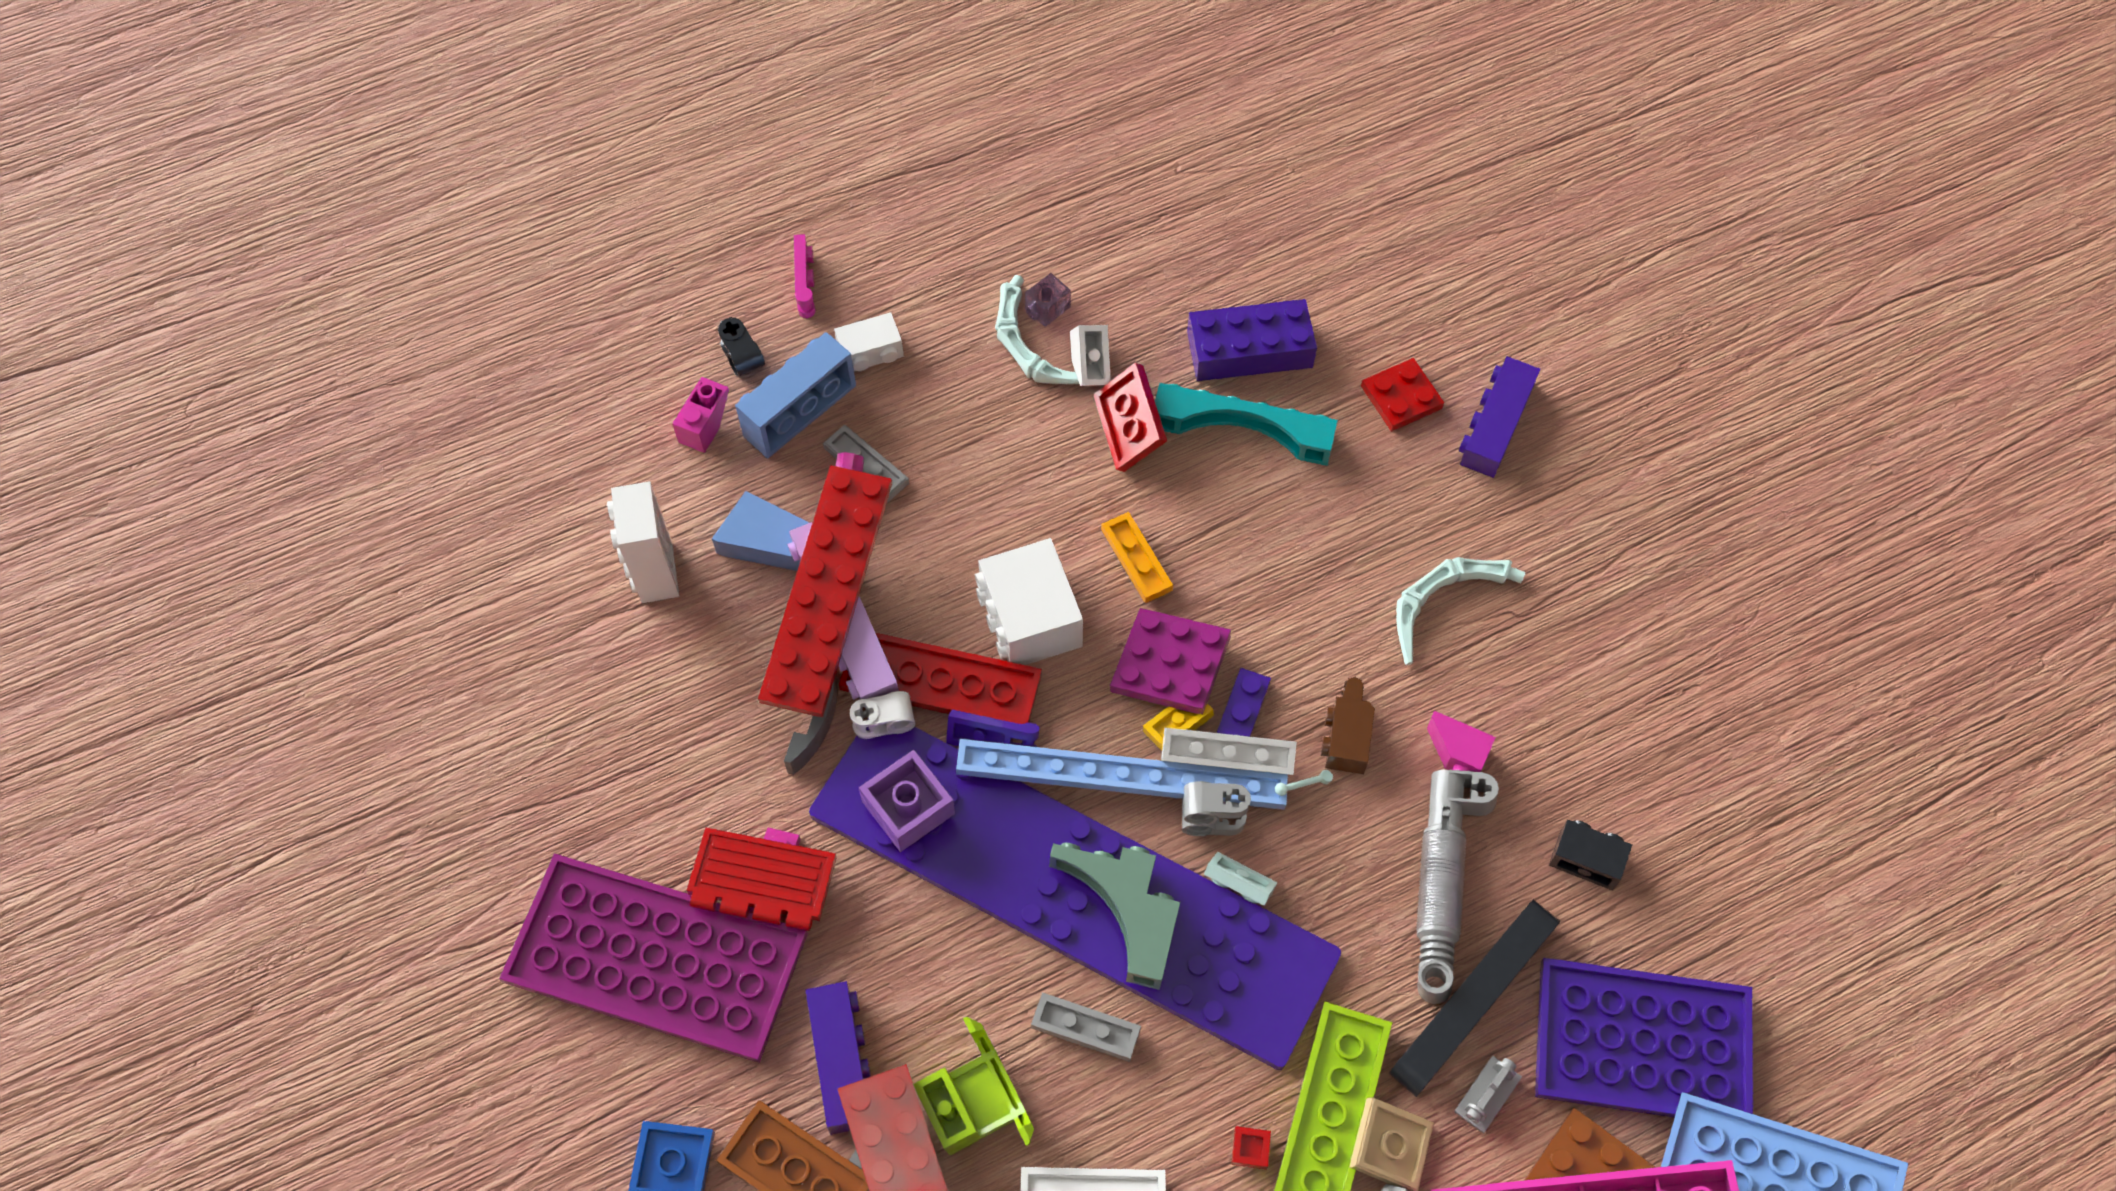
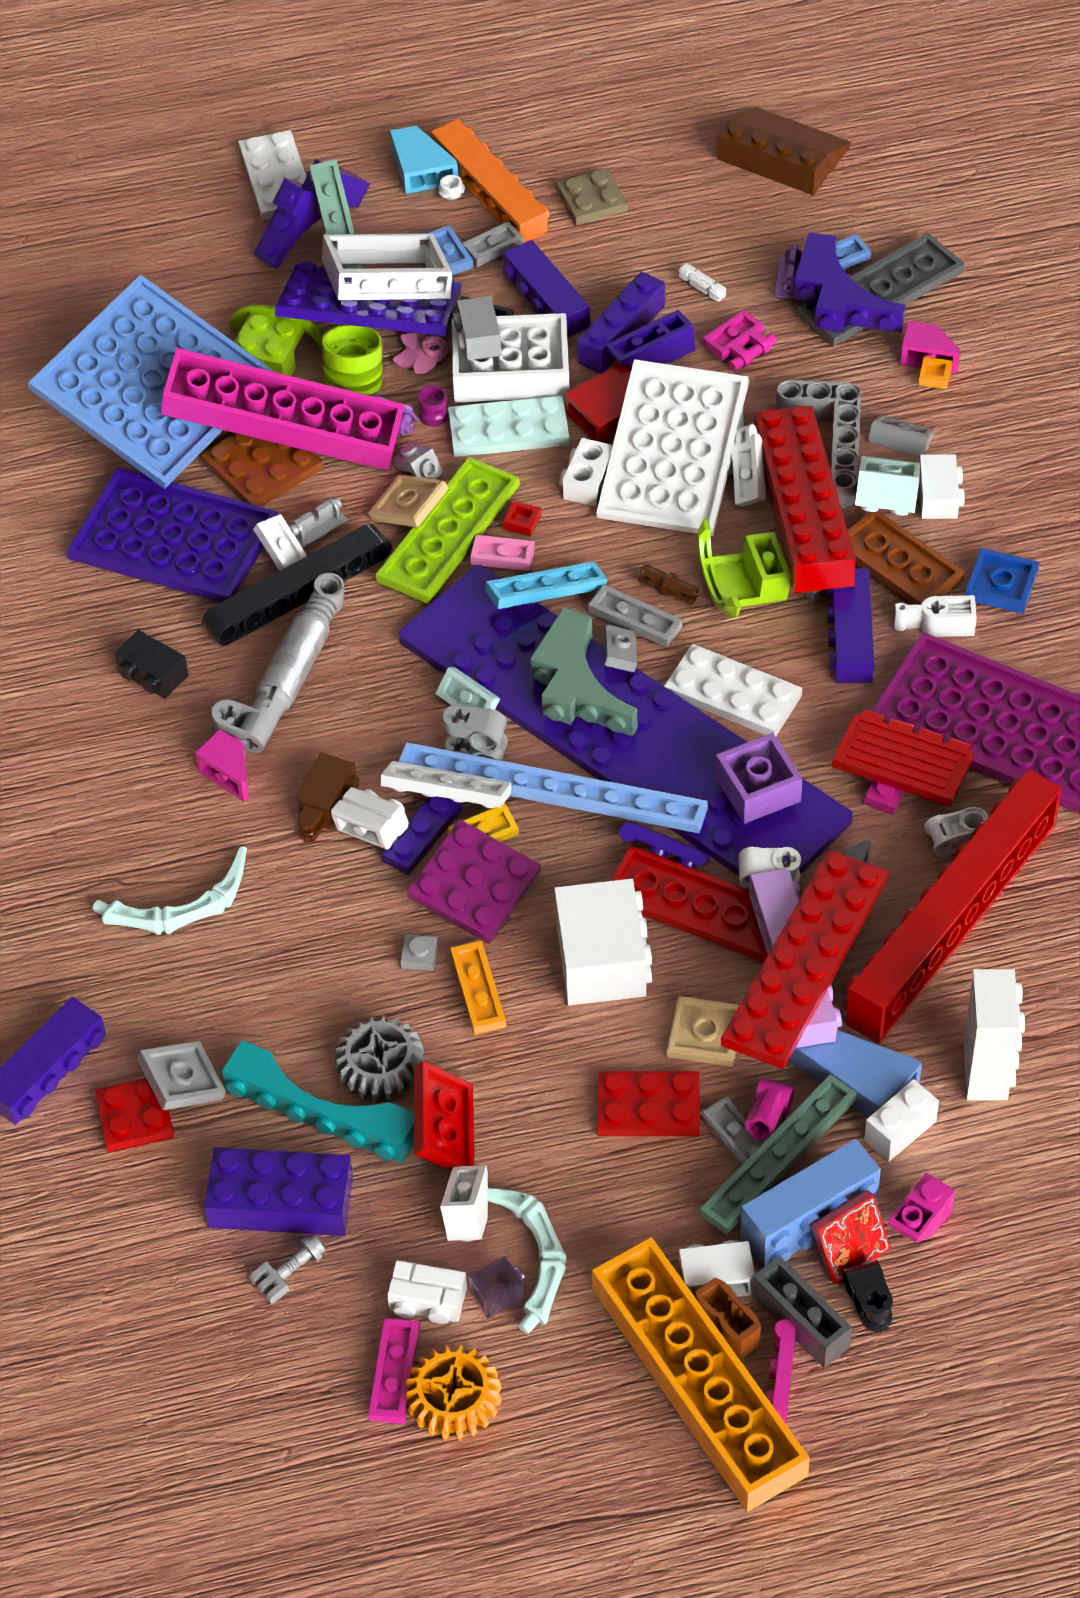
camera: 165 degrees left, 10 degrees down
(690, 711) = (951, 906): none -> red brick
(701, 806) = (954, 830): none -> white piece
(723, 1094) = (939, 616): none -> white piece
(724, 491) = (901, 1120): none -> white brick
(759, 375) = (851, 1235): none -> tile
(789, 311) = (790, 1297): none -> dark grey brick
(831, 439) = (778, 1153): none -> sand green plate
(849, 297) = (733, 1319): none -> dark orange brick
(871, 257) = (700, 1374): none -> light orange brick
(918, 559) = (699, 1029): none -> tan tile
(956, 482) = (648, 1103): none -> red plate
(959, 951) = (734, 690): none -> white plate
(1043, 220) = (478, 1400): none -> light orange gear
(1058, 1083) = (668, 584): none -> reddish brown pin
(1091, 969) = (619, 648): none -> light grey plate
(1103, 286) = (427, 1292): none -> white brick
(1112, 228) = (393, 1369): none -> dark pink plate
(1193, 1036) = (545, 585): none -> medium azure plate
(1200, 486) = (362, 1069): none -> light grey gear
(1202, 587) = (419, 952): none -> light grey plate
(1228, 284) = (275, 1278): none -> light grey hinge
(1259, 1089) = (502, 553): none -> bright pink plate
(1293, 705) = (370, 817): none -> white brick
(1324, 777) = (361, 769): light aqua hinge -> none
(1373, 419) = (181, 1075): none -> light grey plate
(1512, 1040) = (279, 541): none -> white plate

